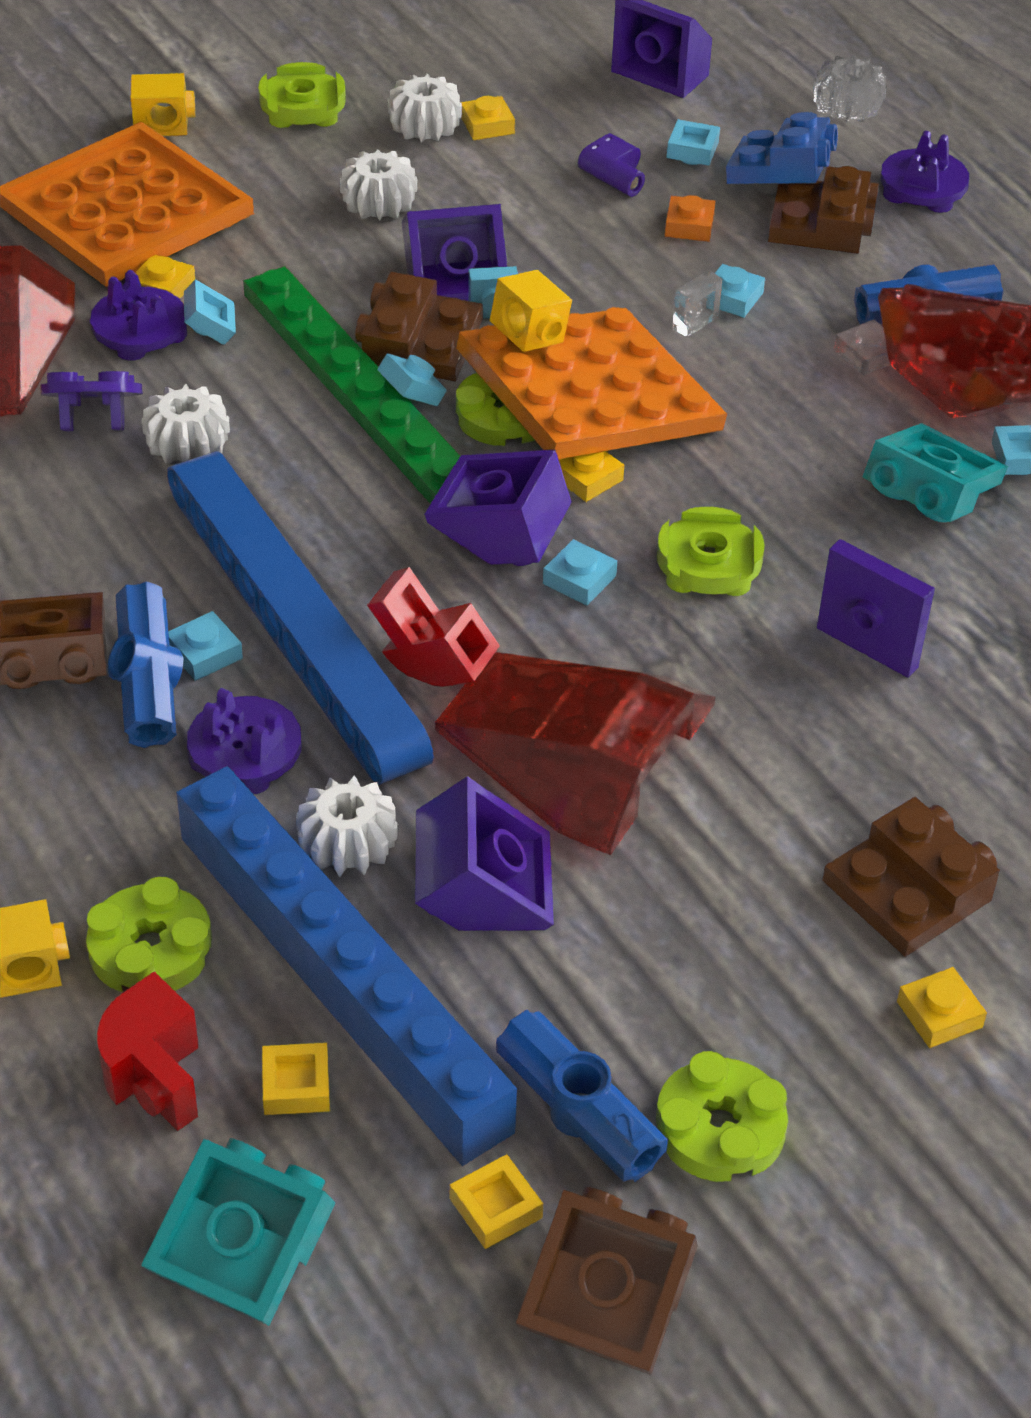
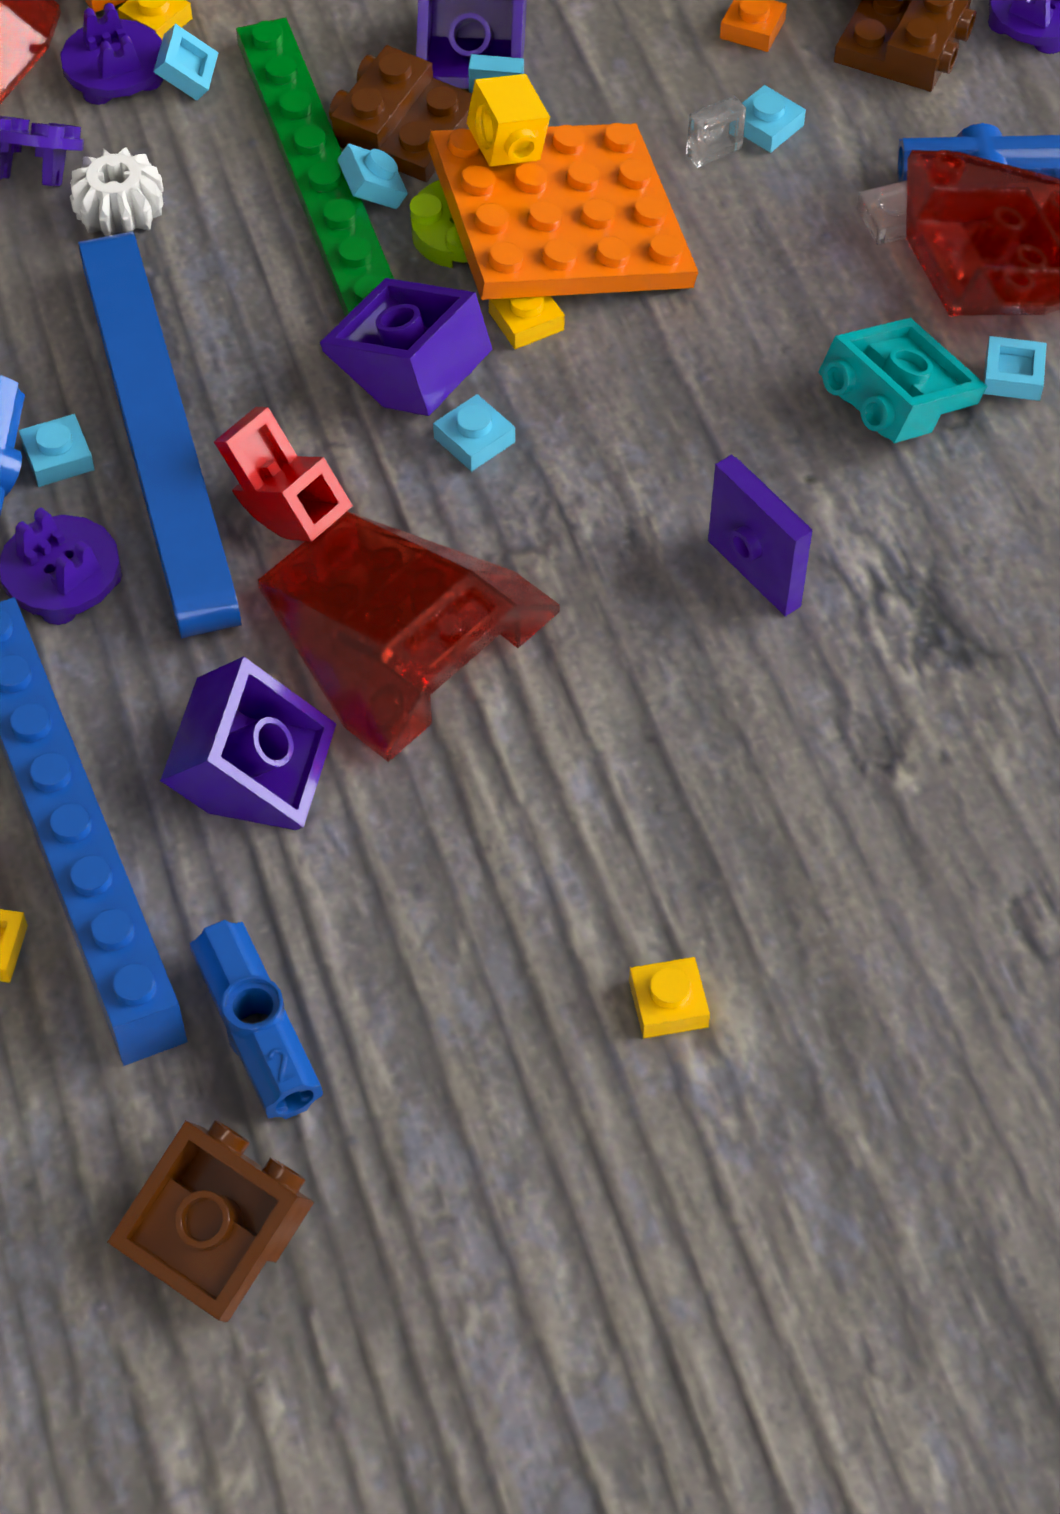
camera: 15 degrees right, 10 degrees up
(347, 825) = (125, 680): white gear -> none
(496, 1201) = (134, 1112): yellow plate -> none
(692, 569) = (614, 459): lime plate -> none
(726, 1085) = (395, 1106): lime plate -> none
(914, 875) = (695, 847): reddish brown plate -> none

